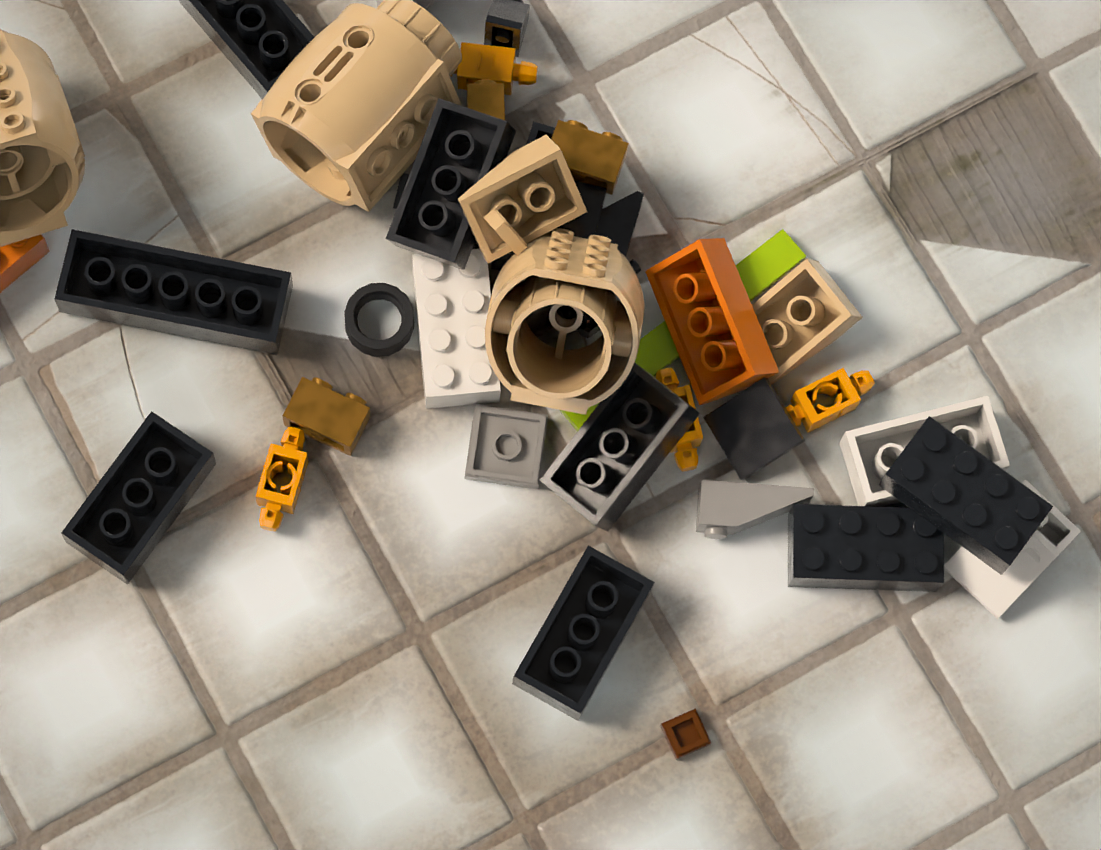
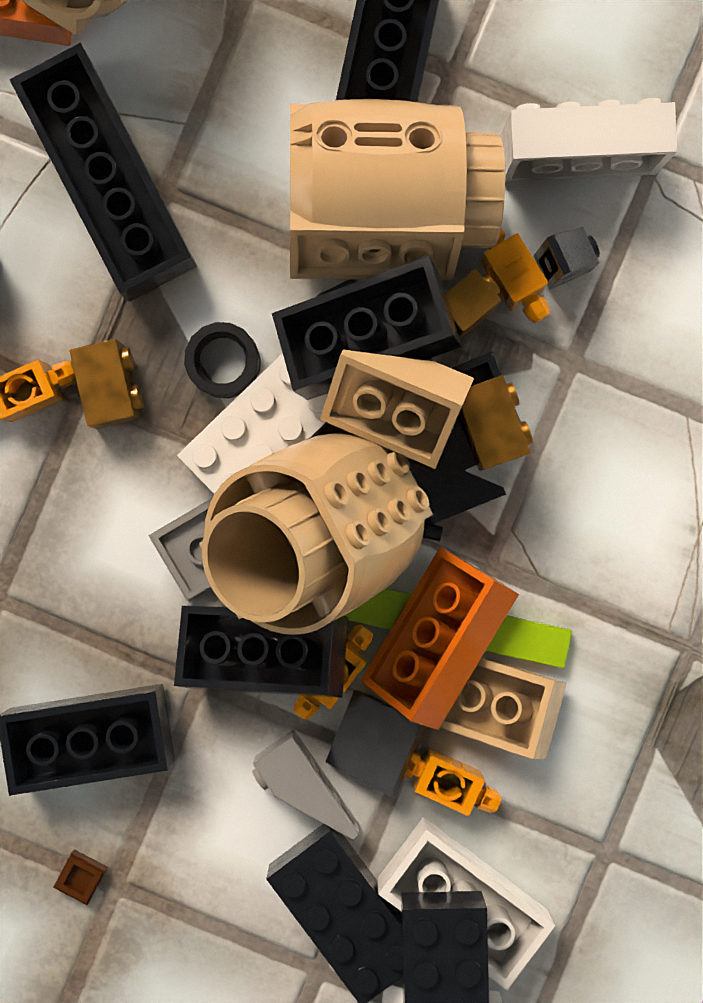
camera: 60 degrees right, 15 degrees up
(506, 231) = (349, 416): tan tile -> none

